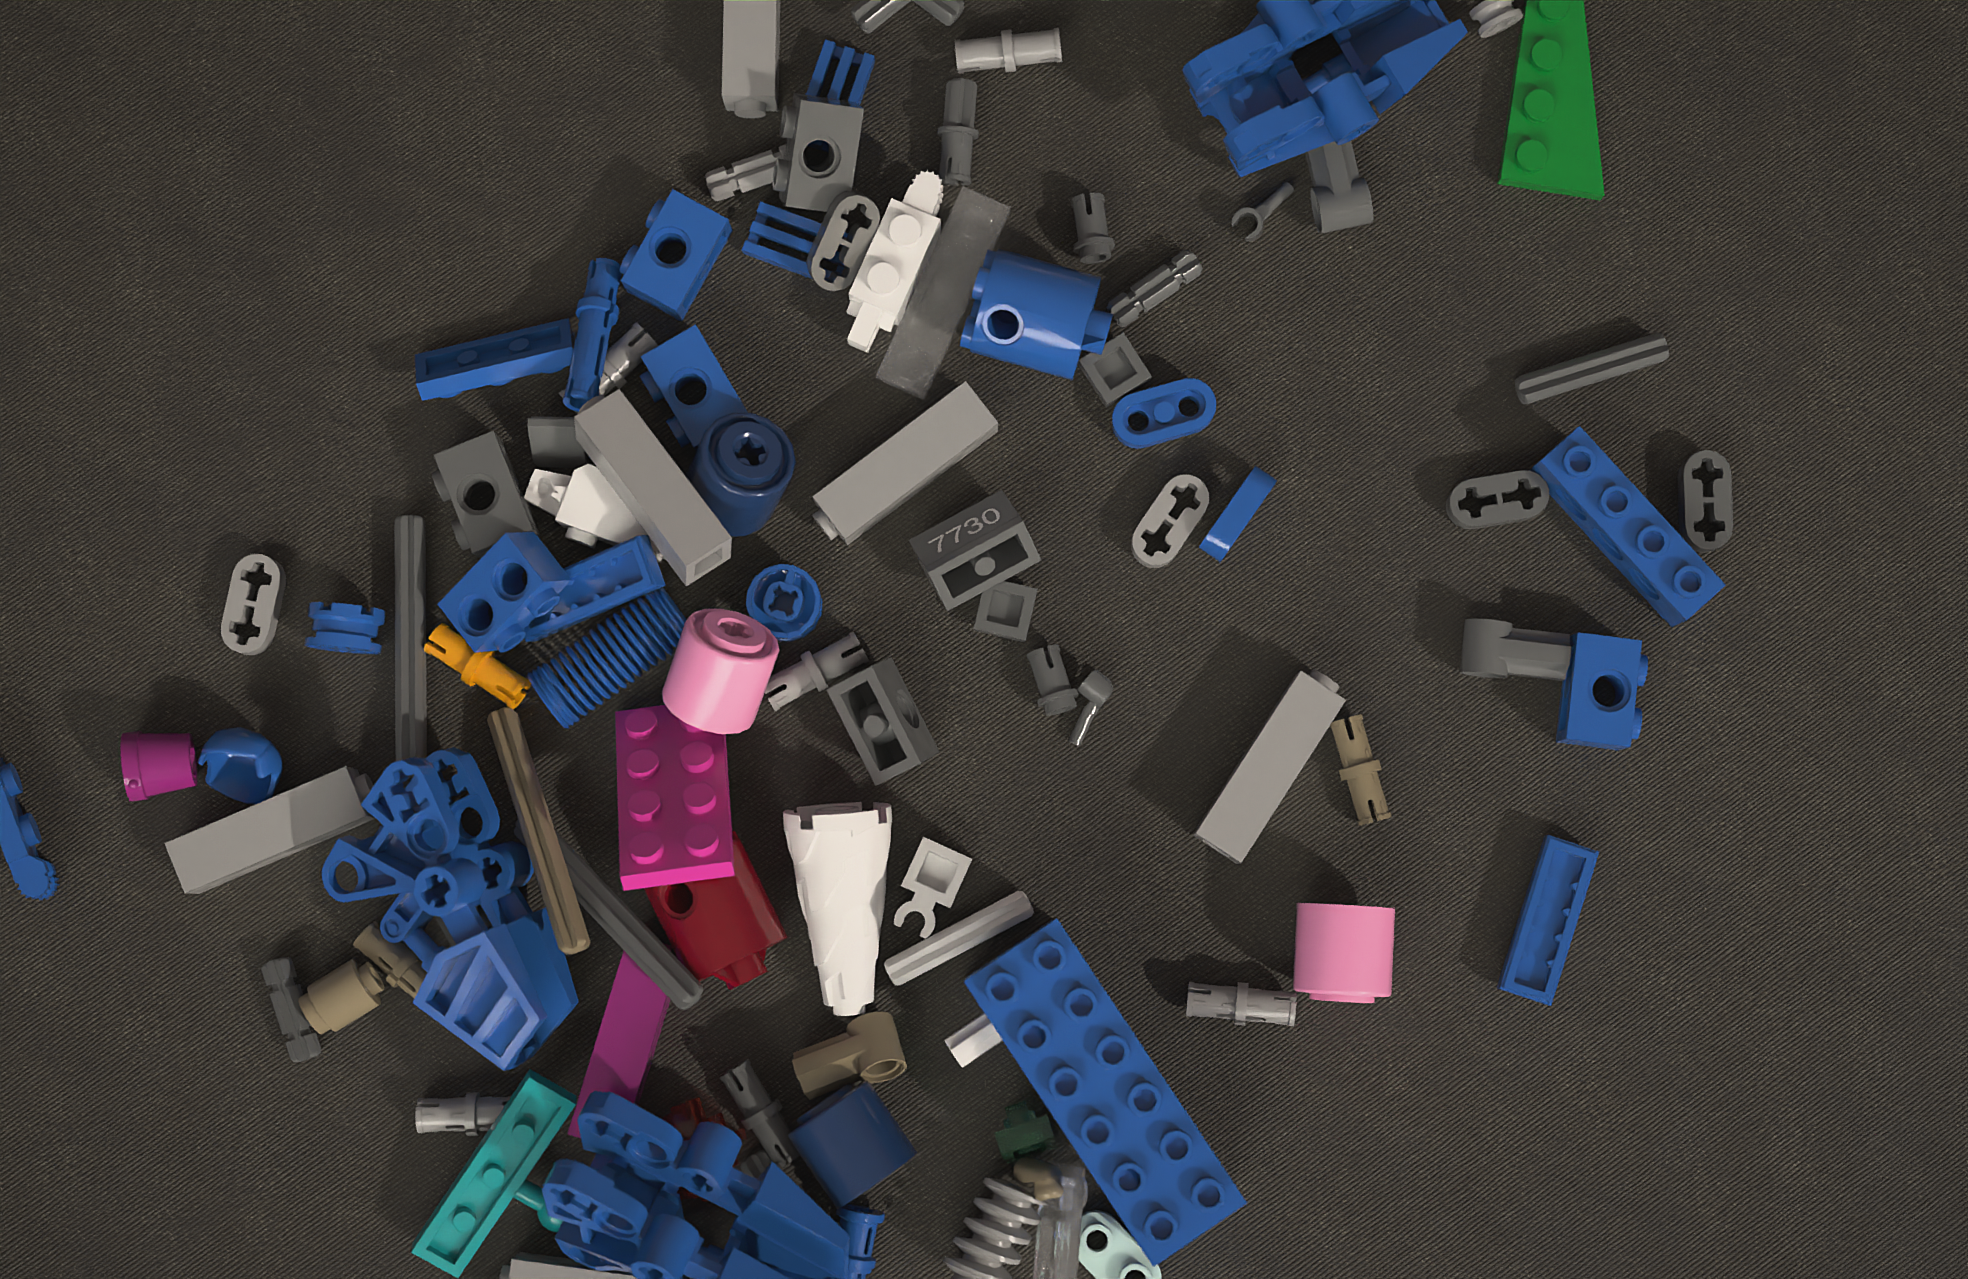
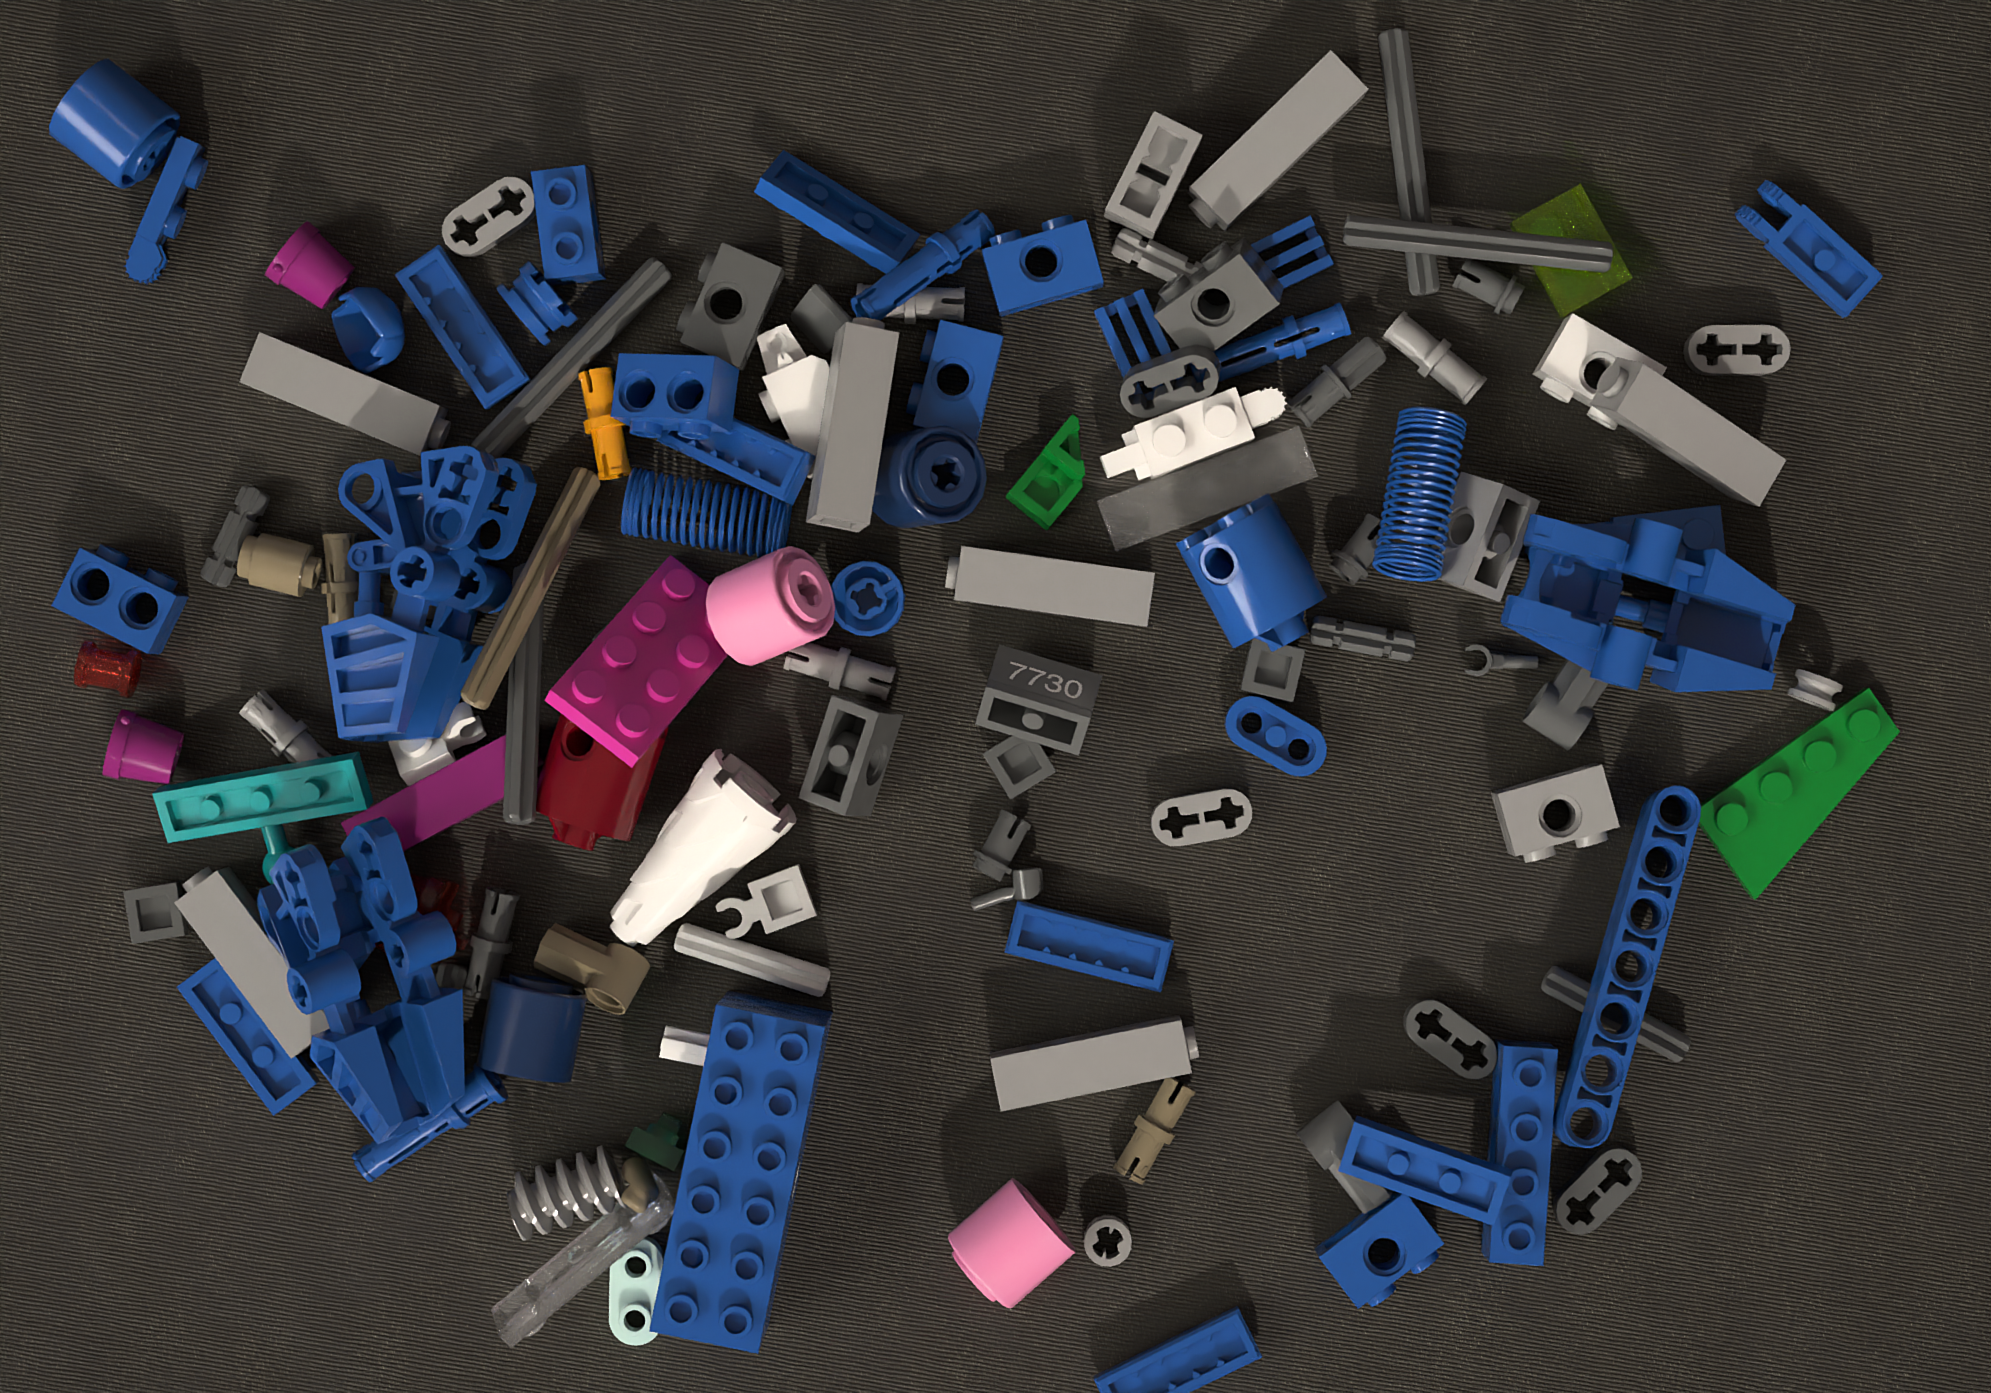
camera: 50 degrees right, 5 degrees up
(254, 1143) = (117, 609): none -> blue brick
(291, 1196) = (108, 669): none -> clear red bush
(309, 699) = (463, 327): none -> blue plate
(313, 552) = (568, 225): none -> blue brick
(373, 1228) = (142, 749): none -> magenta piece
(581, 1026) = (424, 757): none -> white plate
(689, 115) = (1152, 175): none -> light grey brick
(829, 392) = (1051, 478): none -> green slope
(911, 99) = (1330, 324): none -> blue pin
(1064, 104) = (1441, 429): none -> blue piece
(1163, 134) = (1484, 535): none -> light grey brick
(1183, 687) = (1089, 946): none -> blue plate
(1237, 513) = (1254, 862): blue beam -> none
(1241, 1003) = (902, 1206): light grey pin -> none
(1394, 891) = (1123, 1243): none -> light grey bush
(1415, 240) = (1522, 810): none -> light grey brick
(1566, 349) = (1645, 947): none -> blue beam
(1577, 600) = (1425, 1170): none -> blue plate

